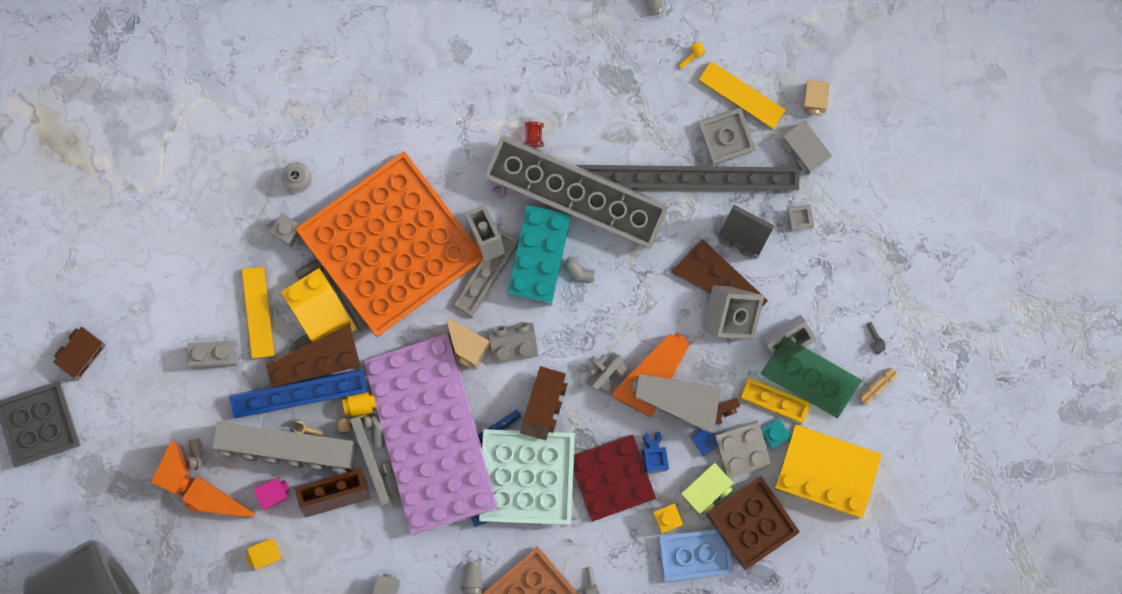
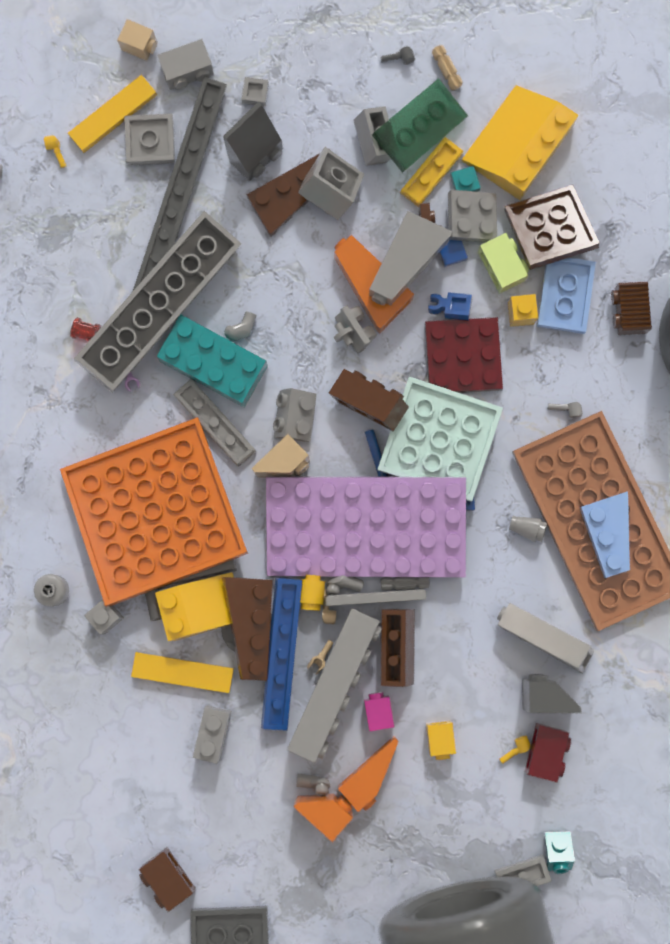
camera: 75 degrees left, 0 degrees up
(484, 233) = (172, 408): light grey brick -> none

